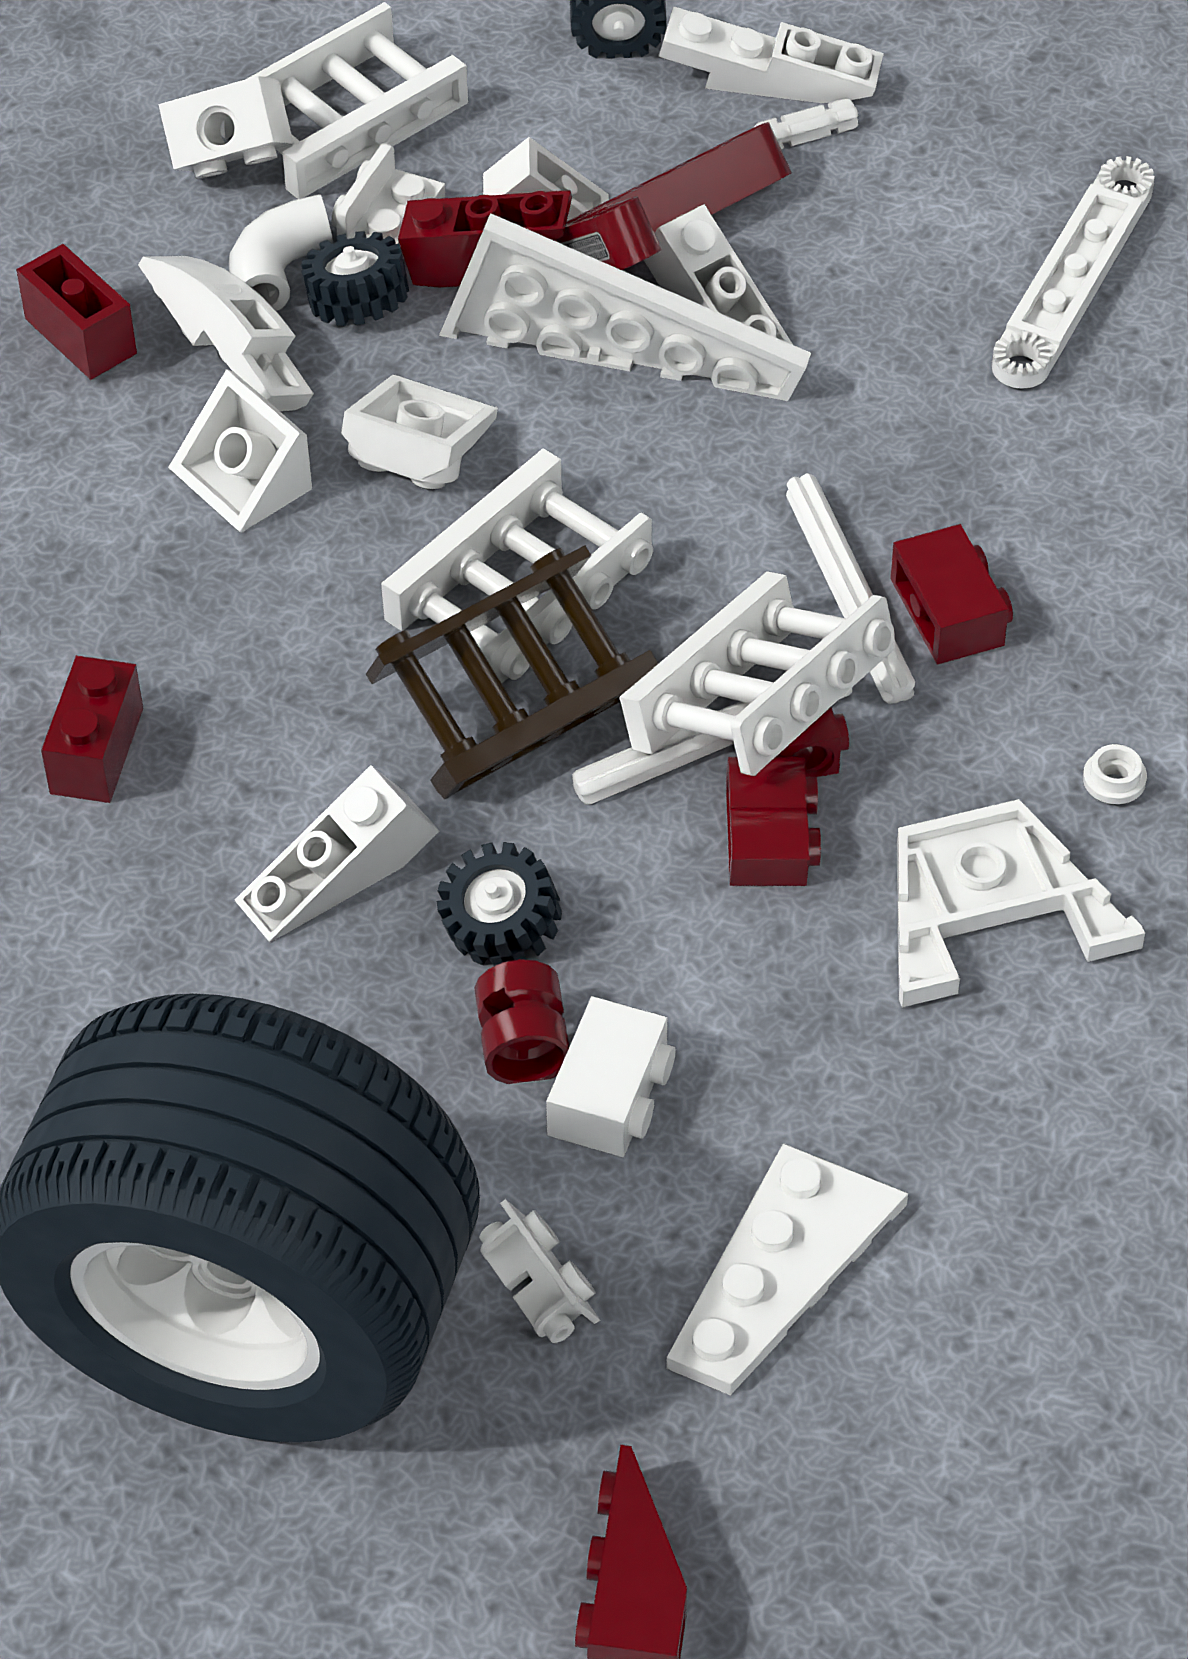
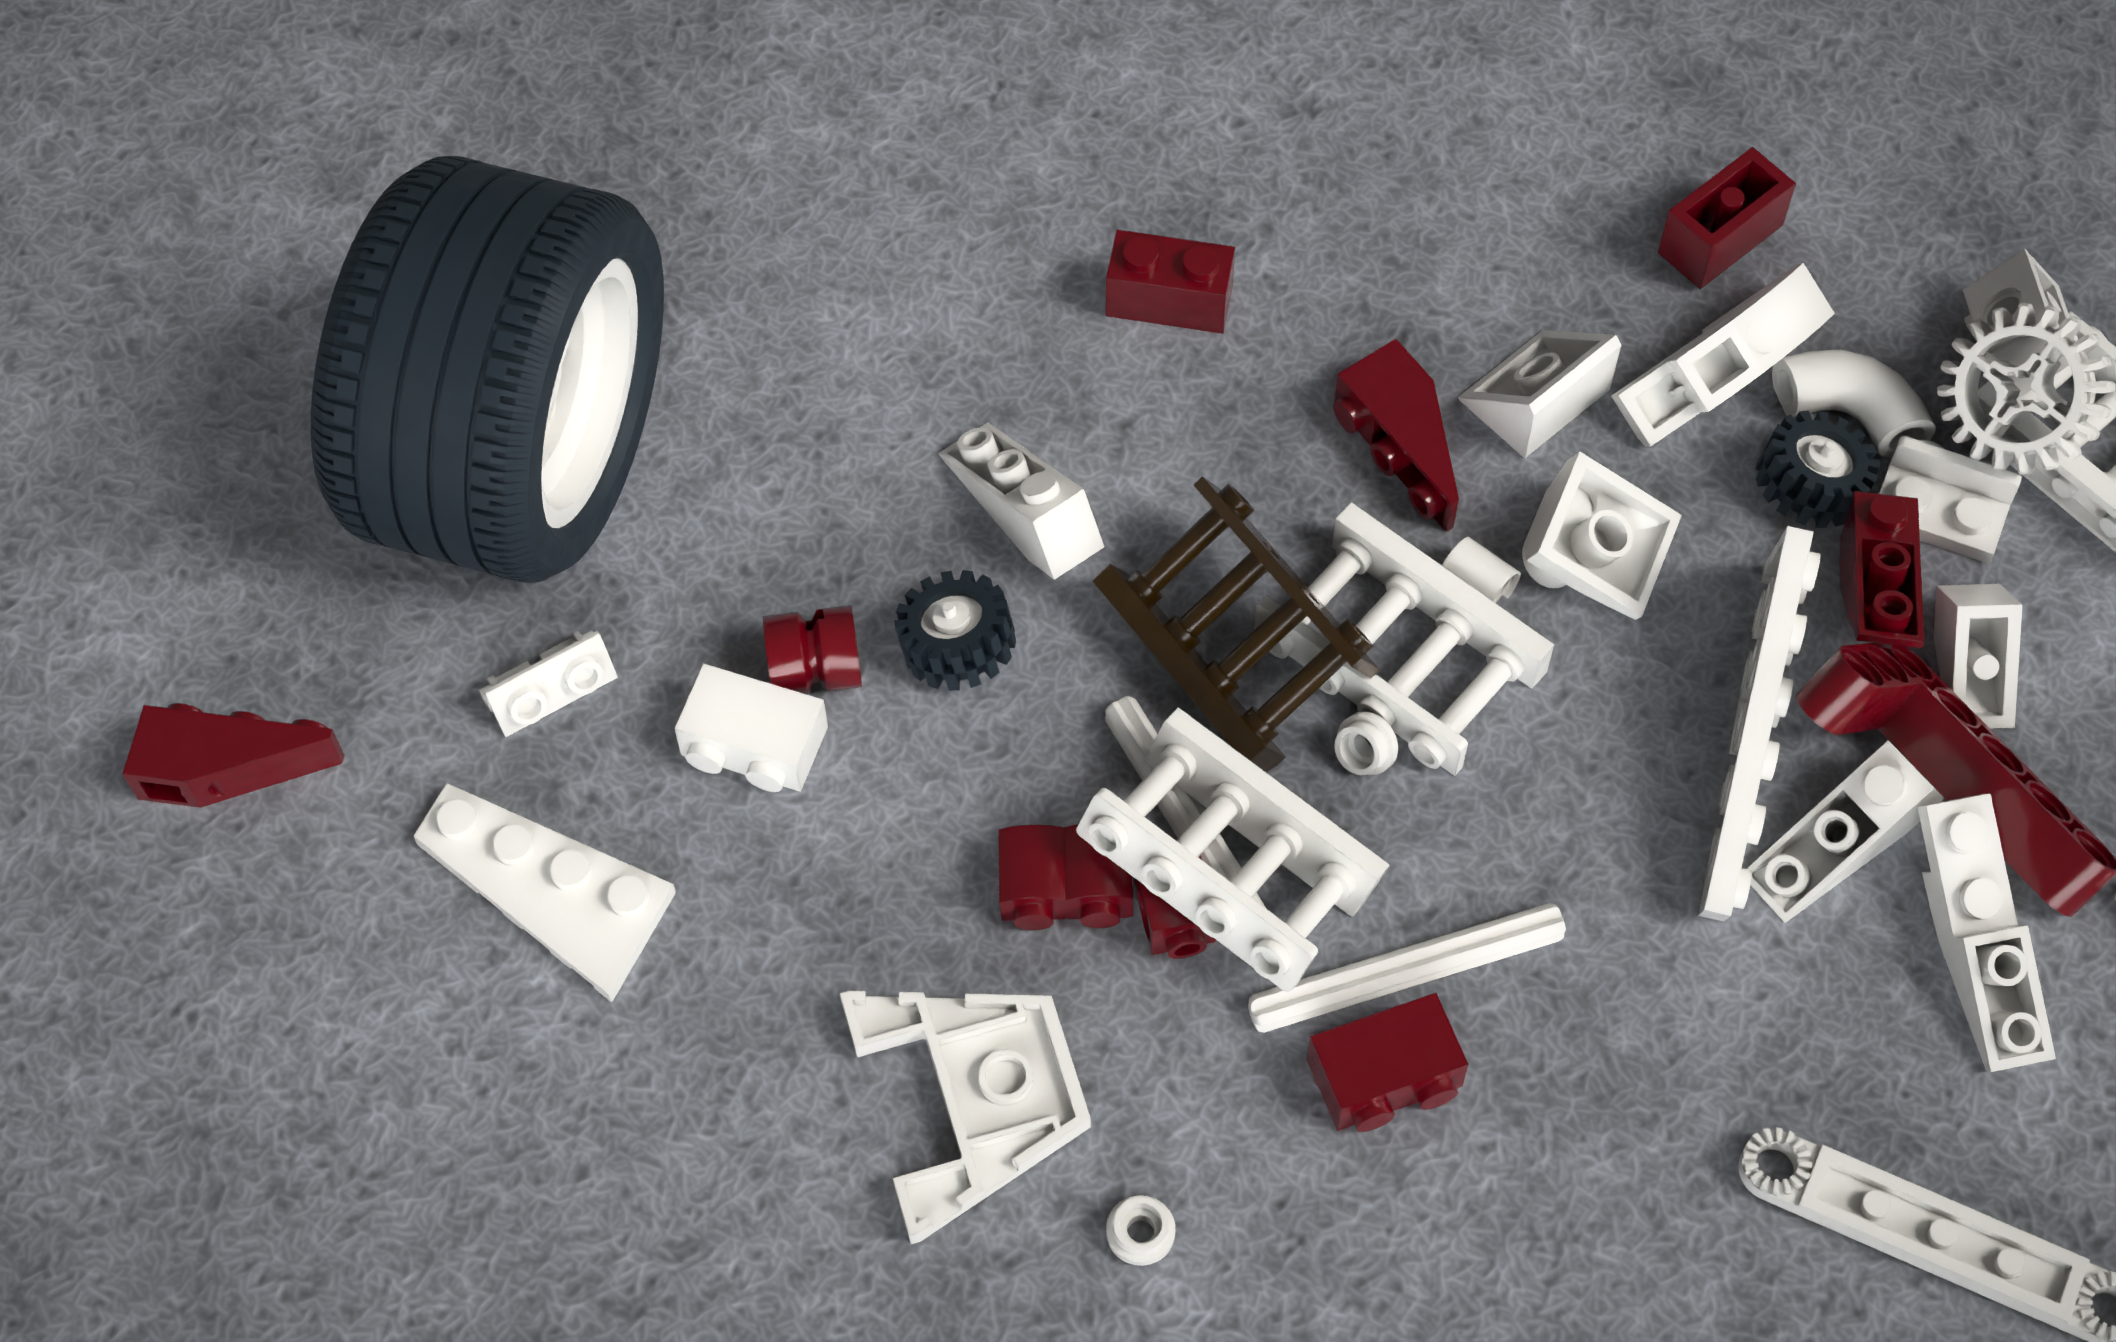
camera: 90 degrees right, 10 degrees up
(280, 556) = (1400, 418): none -> dark red slope
(297, 72) = (2045, 364): none -> white gear
(446, 507) = (1482, 569): none -> white beam
(629, 599) = (1356, 753): none -> white plate
(816, 222) = (1980, 933): none -> white slope

